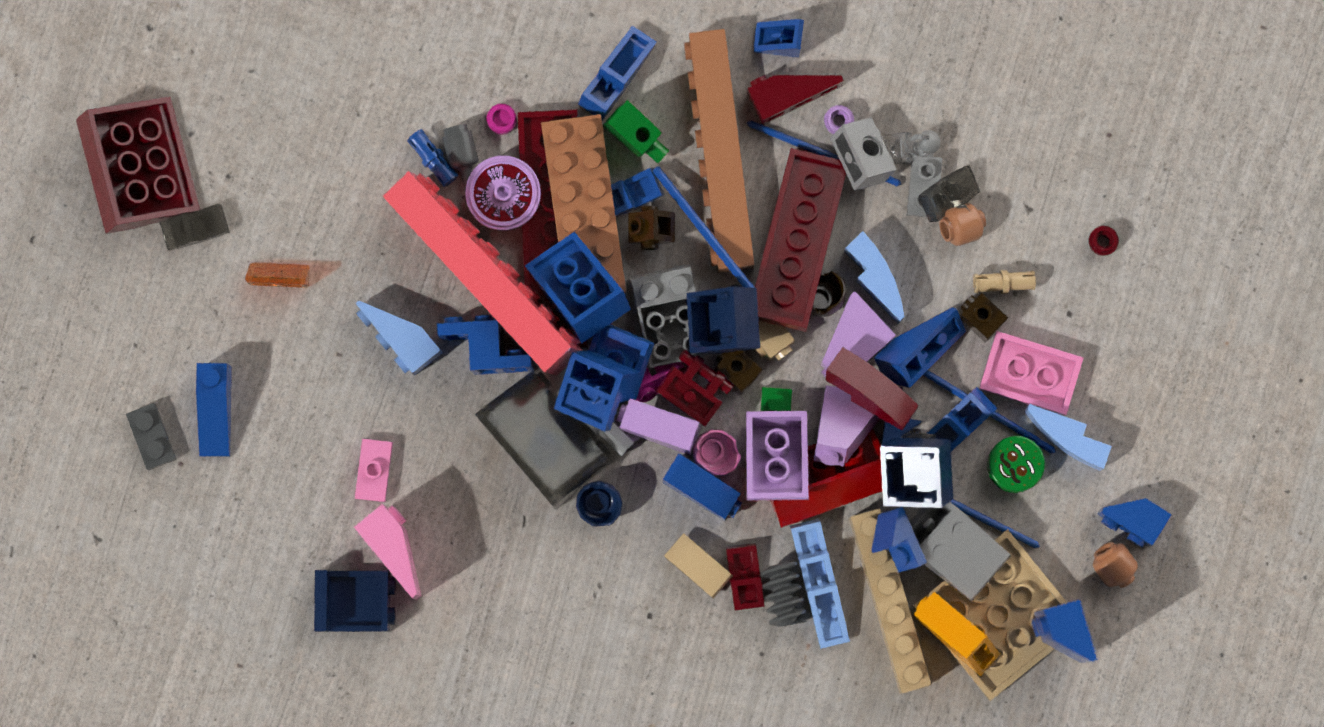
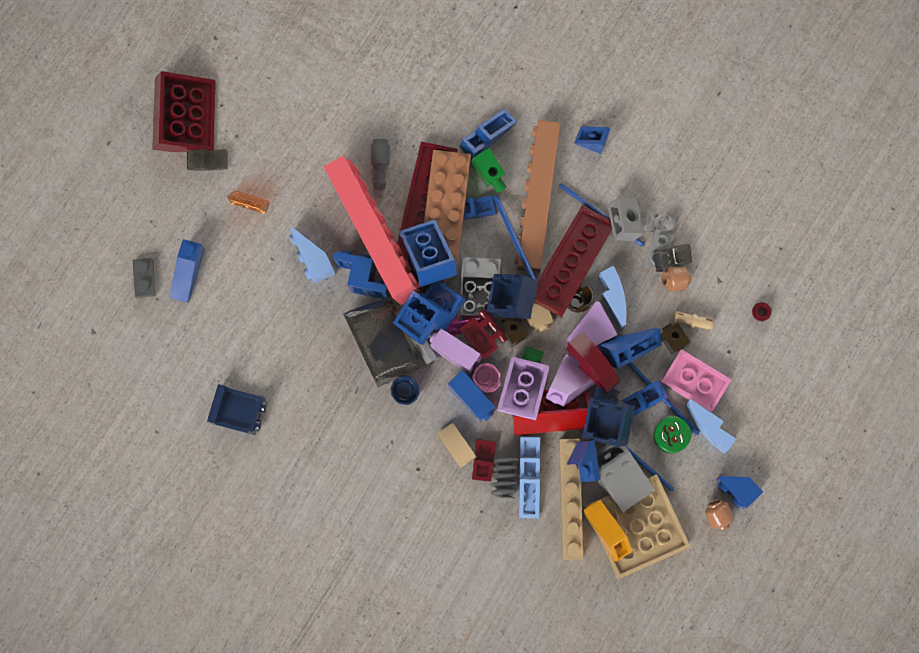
camera: 15 degrees right, 5 degrees down
(373, 470) = (272, 333): bright pink plate -> none
(391, 543) = (270, 381): bright pink slope -> none
(432, 158) = (362, 155): blue pin -> none
(501, 119) = (410, 143): dark pink tile -> none
(503, 193) = (398, 186): lavender shield -> none
(651, 227) = (483, 230): dark brown brick -> none
(784, 93) = (586, 172): dark red slope -> none
(834, 111) = (615, 191): lavender plate -> none
(1065, 630) = (678, 546): blue slope -> none

